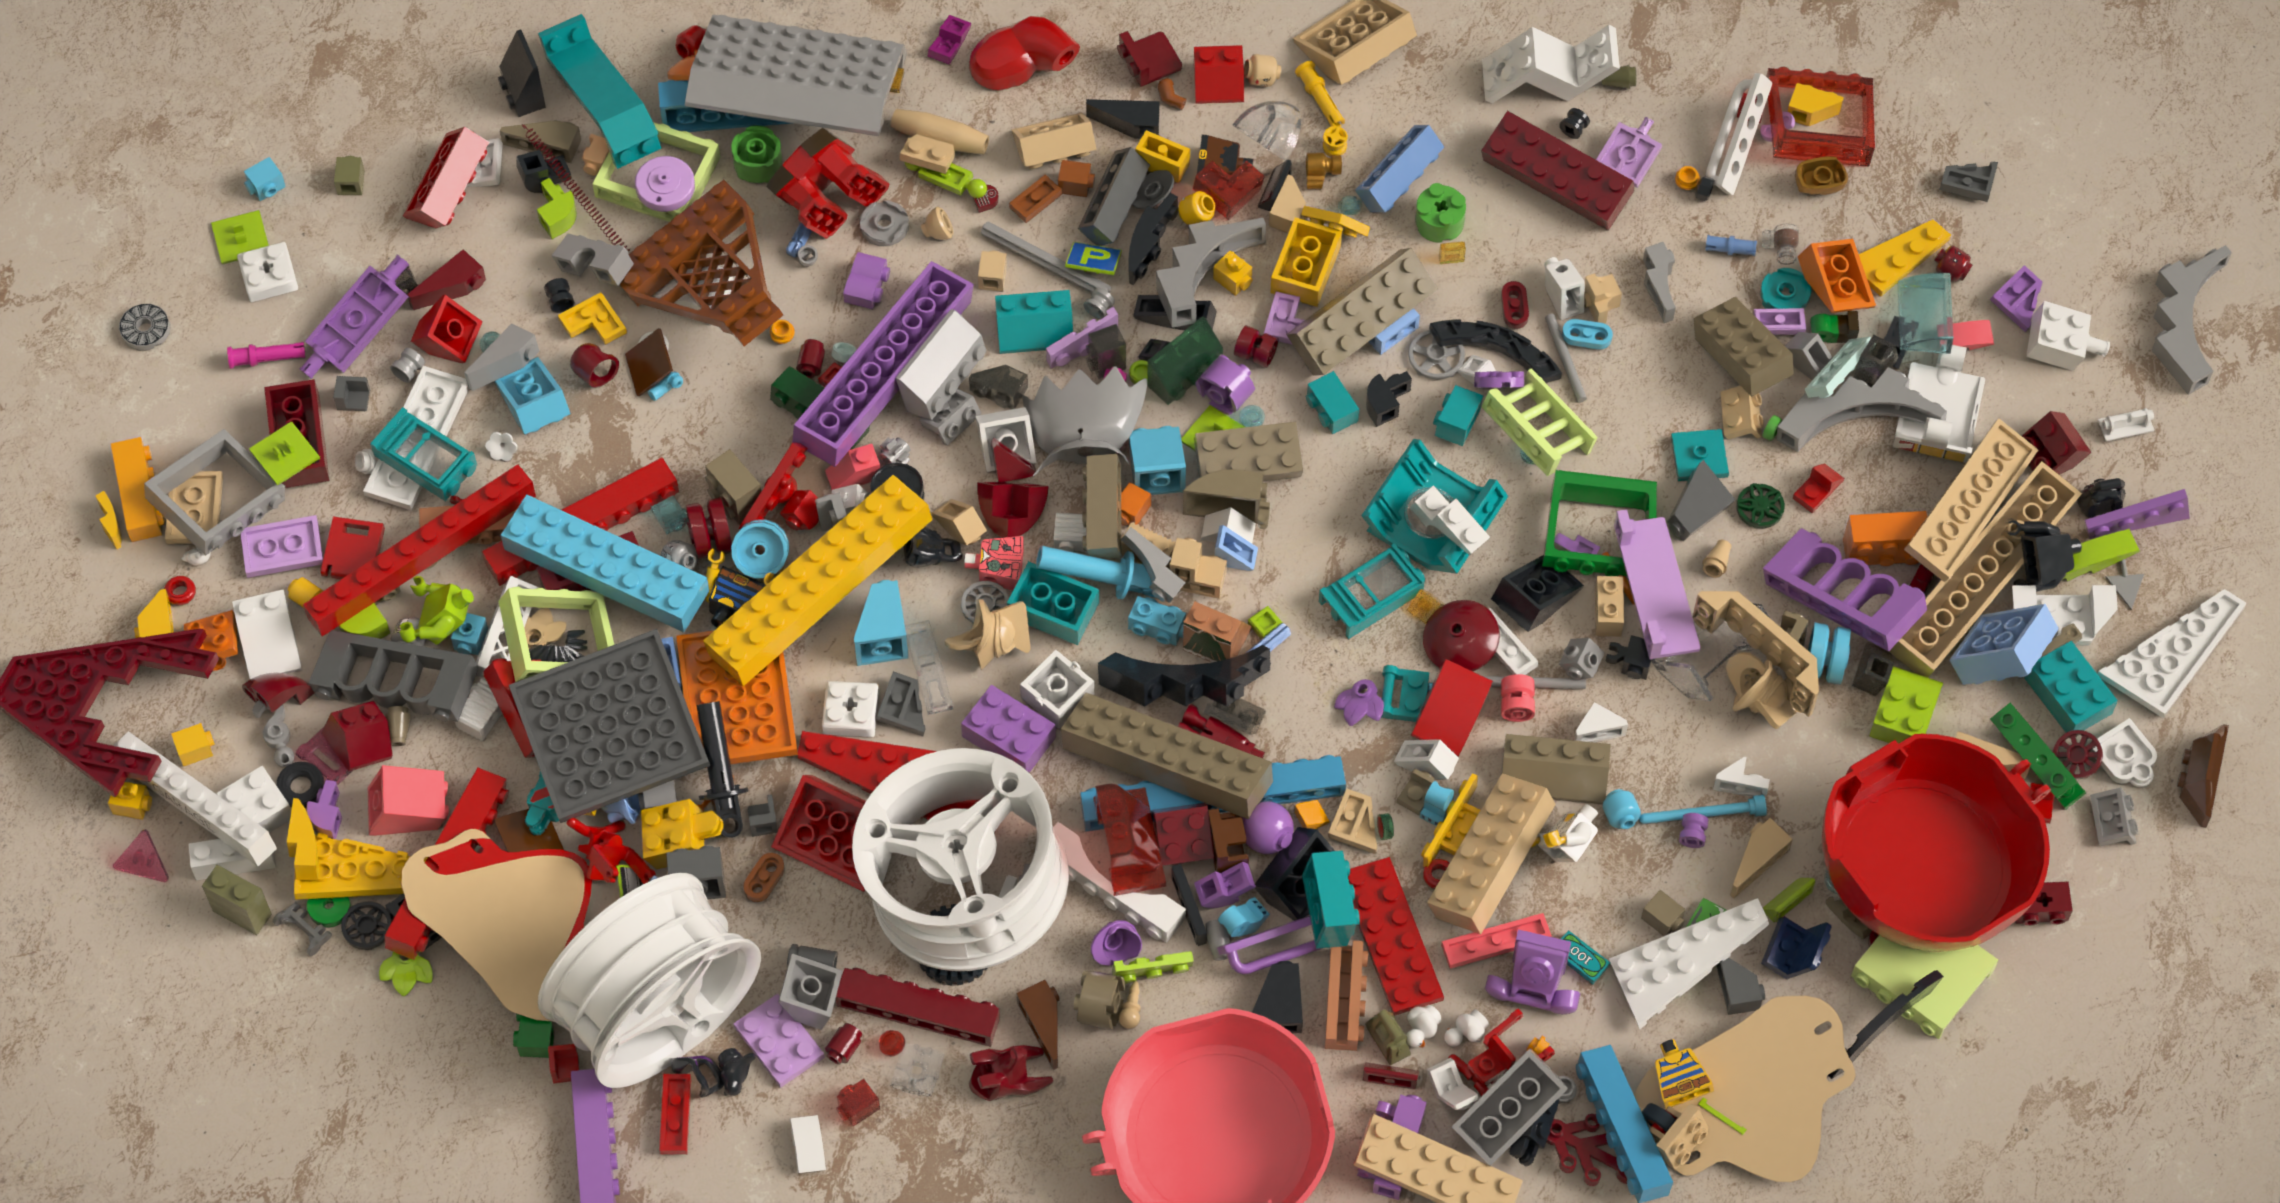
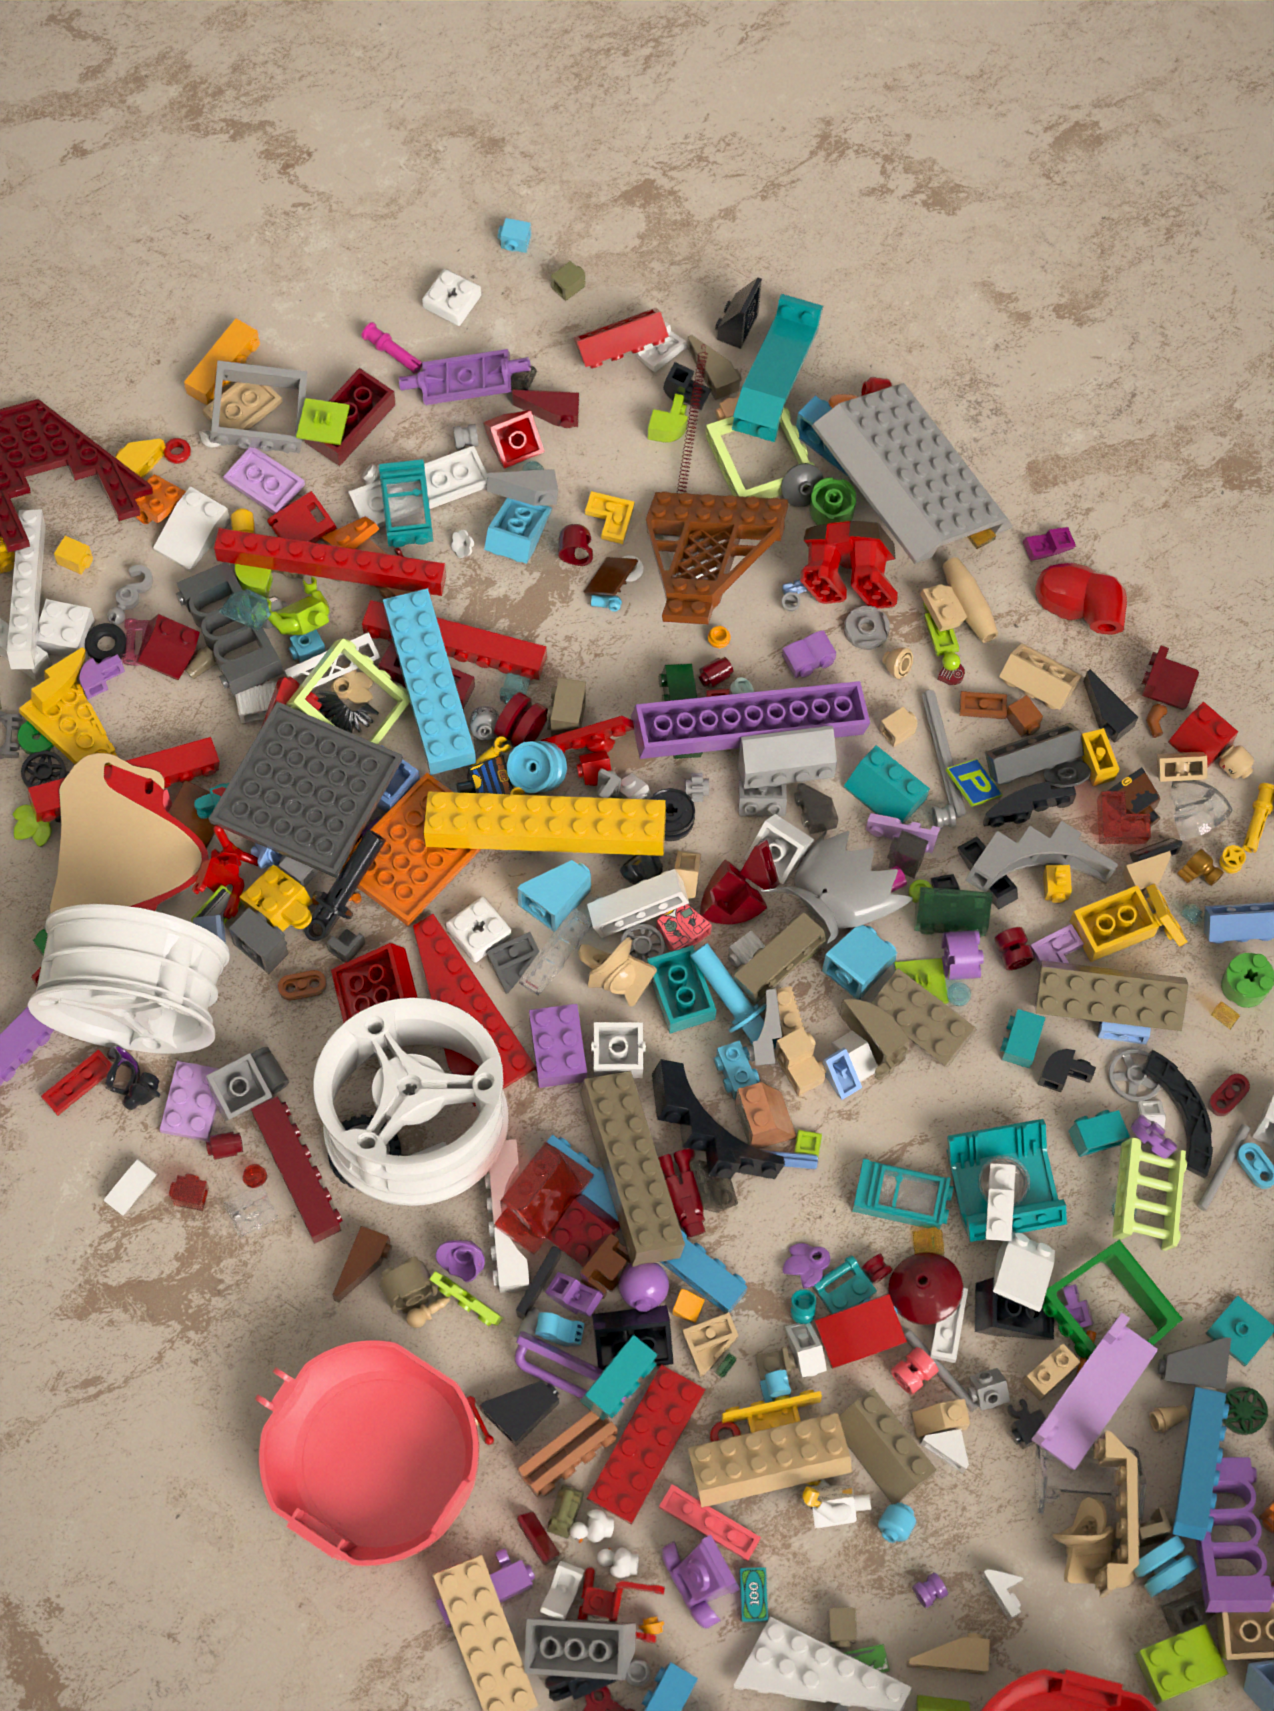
camera: 45 degrees right, 5 degrees up
(109, 521) = (183, 369): yellow slope -> none
(139, 315) = (340, 253): tile -> none
(239, 235) = (464, 258): lime piece -> none
(276, 689) = (155, 567): dark red brick -> none
(351, 393) = (412, 422): dark grey panel -> none
(398, 642) = (247, 609): none -> clear light blue slope
(406, 800) = (151, 717): coral slope -> none
(407, 518) = (351, 534): none -> orange wing
(559, 295) = (606, 480): black wheel -> none
(607, 261) = (652, 474): light grey arch -> none
(664, 183) = (748, 467): lavender wheel -> none
(716, 161) = (796, 479): none -> dark grey dish
(854, 468) = (660, 772): coral slope -> none
(952, 571) = (637, 903): none -> white brick
(1005, 1072) = (296, 1270): dark red piece -> none
(1134, 504) = (809, 975): orange brick -> none
(1196, 208) = (1081, 815): yellow head -> none
(1229, 107) = (1182, 766): none -> tan brick
(1393, 732) = (803, 1306): none -> teal wheel
(1413, 657) = (877, 1268): none -> dark red wheel
(1517, 552) = (1023, 1270): none -> white slope
(1571, 710) = (941, 1418): none -> tan slope
(1754, 806) = (992, 1617): medium azure piece -> none
(1776, 561) = (1199, 1464): none -> dark azure brick

